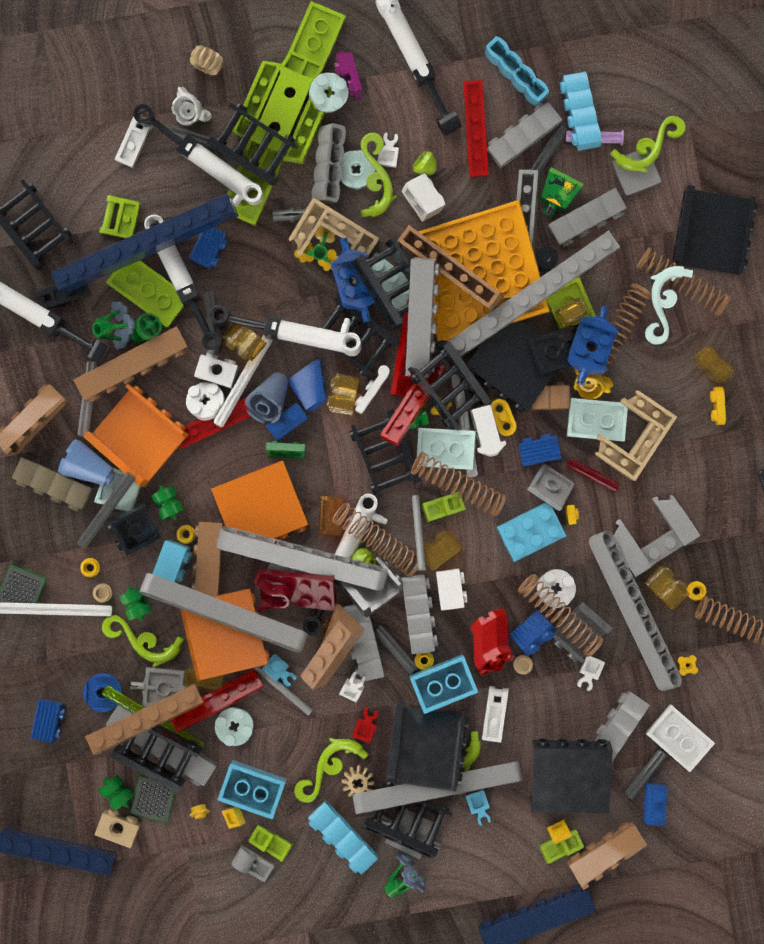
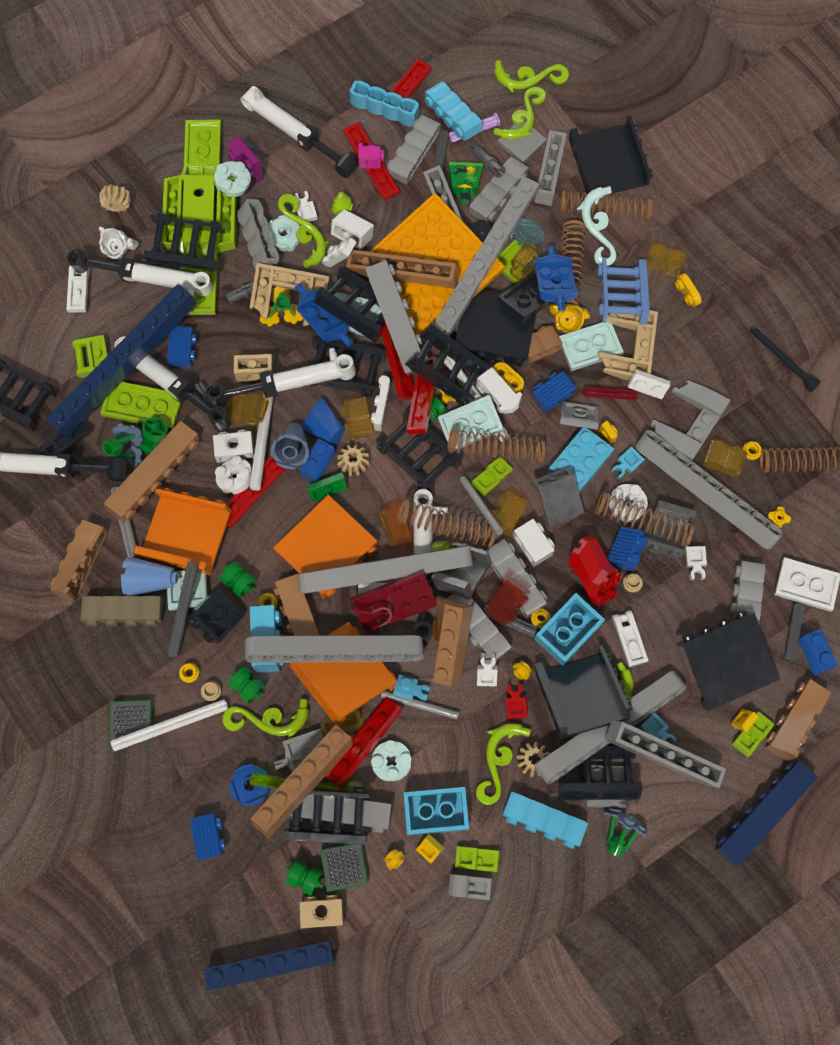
camera: 25 degrees left, 15 degrees down
(267, 301) = (249, 366): none -> tan brick
(327, 436) = (346, 465): none -> tan gear
(384, 699) = (521, 670): none -> yellow plate
(398, 219) = (339, 252): none -> white plate
(399, 636) = (508, 601): none -> clear red brick
(471, 834) = (665, 754): none -> light grey brick
(475, 127) = (370, 156): none -> dark pink brick
(492, 558) = (559, 496): none -> flat silver panel
(555, 54) = (412, 79): none -> red tile
(576, 550) = (628, 461): none -> medium azure plate
(590, 187) = (490, 163): none -> dark grey pin
(595, 280) = (528, 232): none -> clear light blue tile
(631, 485) = (648, 384): none -> white plate
(648, 217) = (550, 167): none -> light grey brick
(665, 397) = (640, 285): none -> medium blue fence
(676, 94) = (532, 80): none -> lime plant

